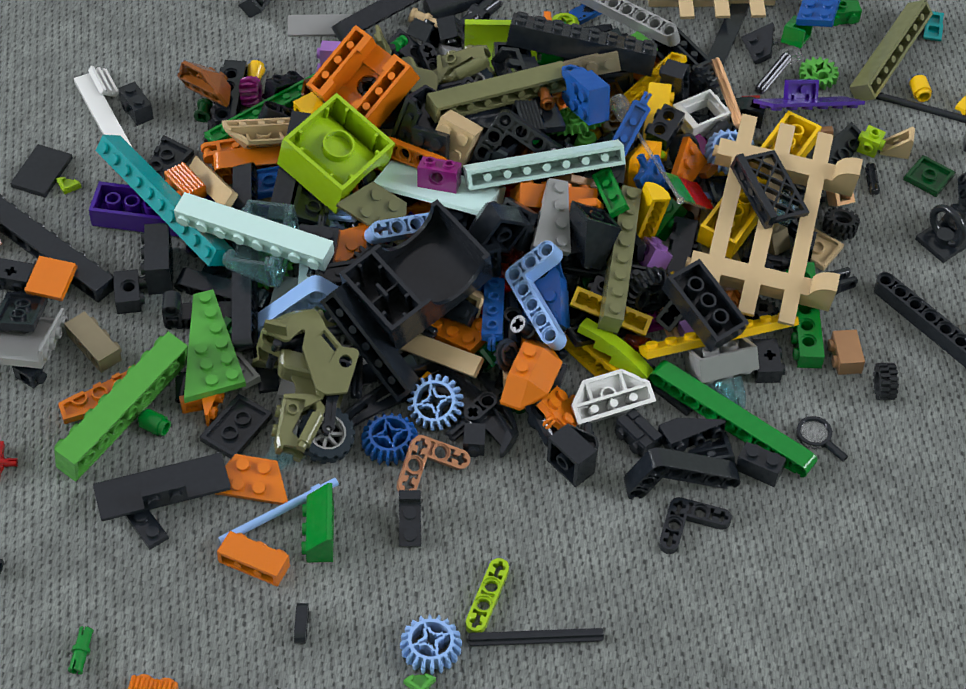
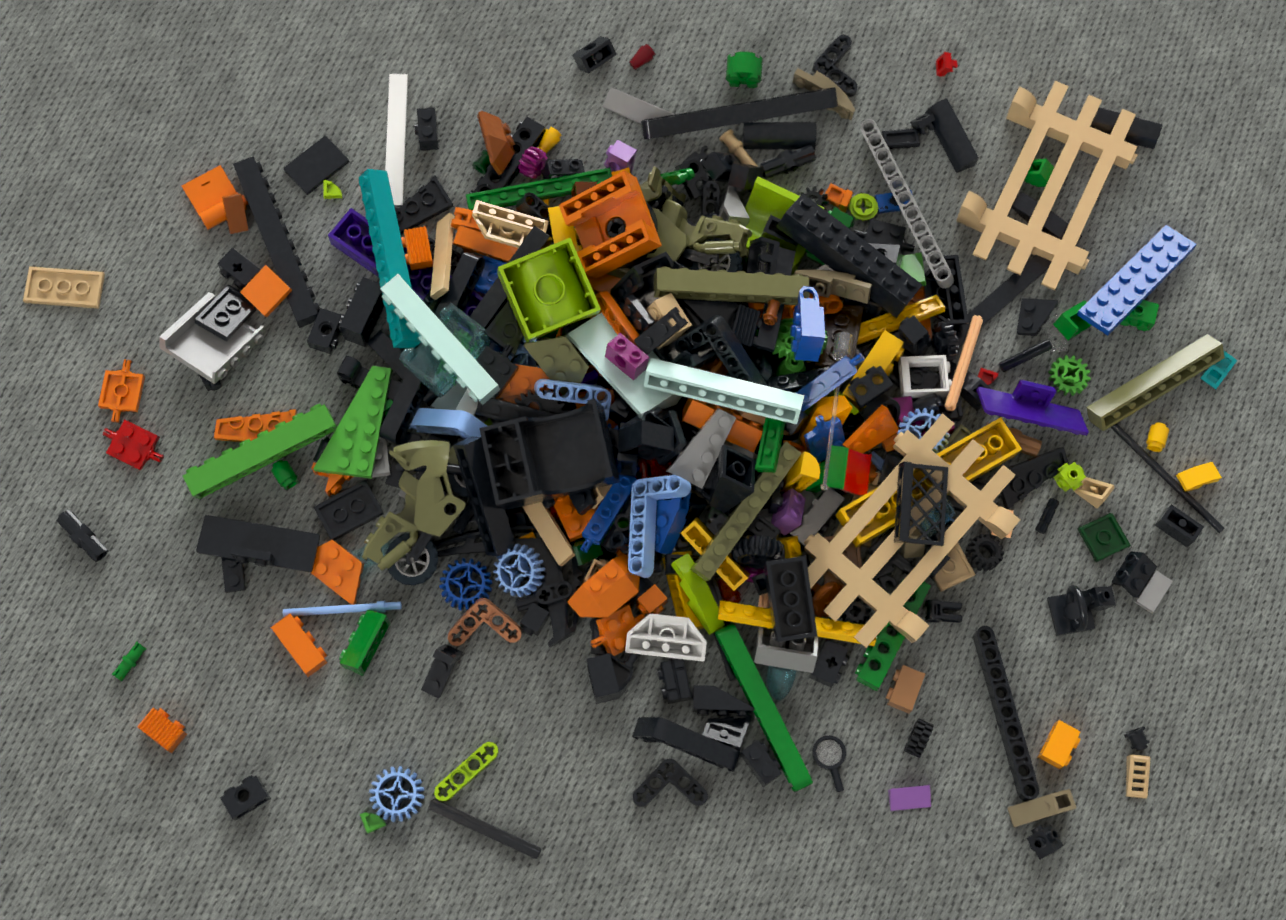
camera: 25 degrees right, 20 degrees up
(93, 341) = (274, 369): dark tan brick -> none
(103, 81) = (416, 90): white tile -> none
(301, 623) = (307, 722): black beam -> none
(461, 137) = (660, 331): none -> black plate
(511, 350) = (601, 558): black gear -> none
(573, 376) = (652, 601): none -> orange brick
(595, 202) = (745, 449): orange tile -> none
(909, 435) = (909, 798): none -> medium lavender slope

